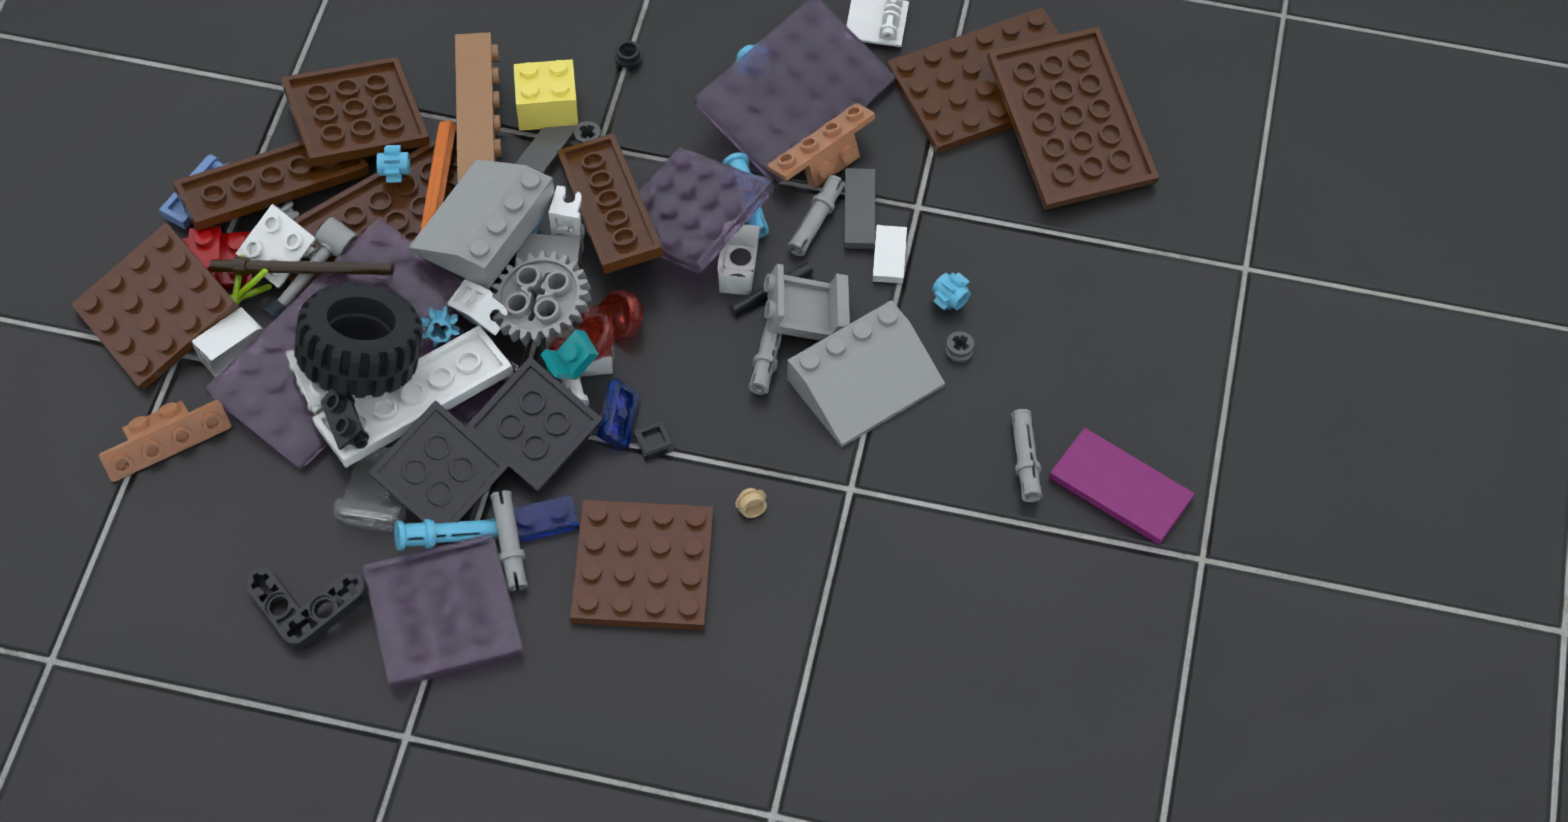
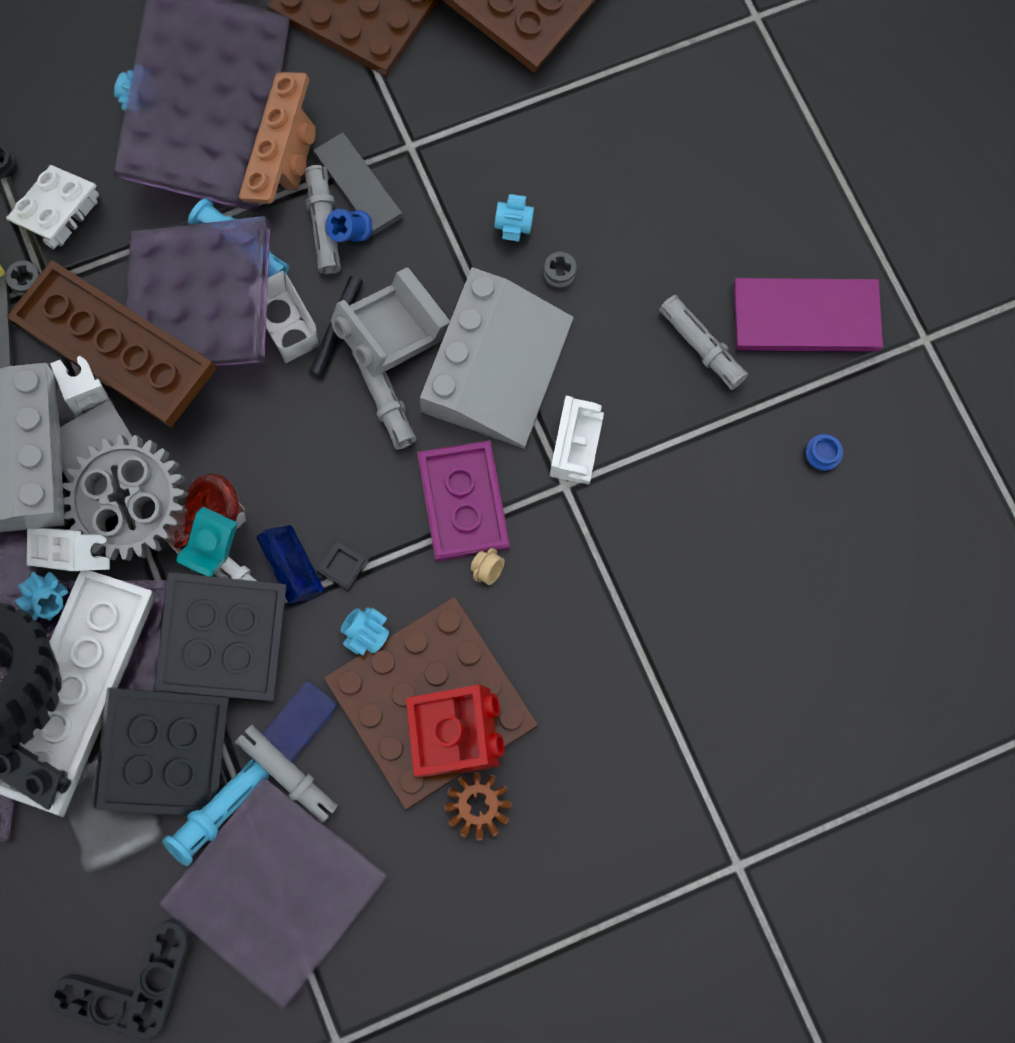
camera: 40 degrees left, 15 degrees up
(607, 643) = (491, 803): none -> dark orange gear
(623, 309) = (210, 452): clear red hat -> none
(633, 486) = (364, 631): none -> medium azure gear
(640, 582) = (454, 731): none -> red plate
(643, 99) = (52, 203): none -> white hinge
(770, 451) = (463, 500): none -> magenta tile
(825, 224) = (347, 225): none -> blue bush
(880, 461) = (577, 441): none -> white hinge
(889, 254) = (423, 214): white tile -> none
(1059, 583) = (824, 452): none -> blue plate

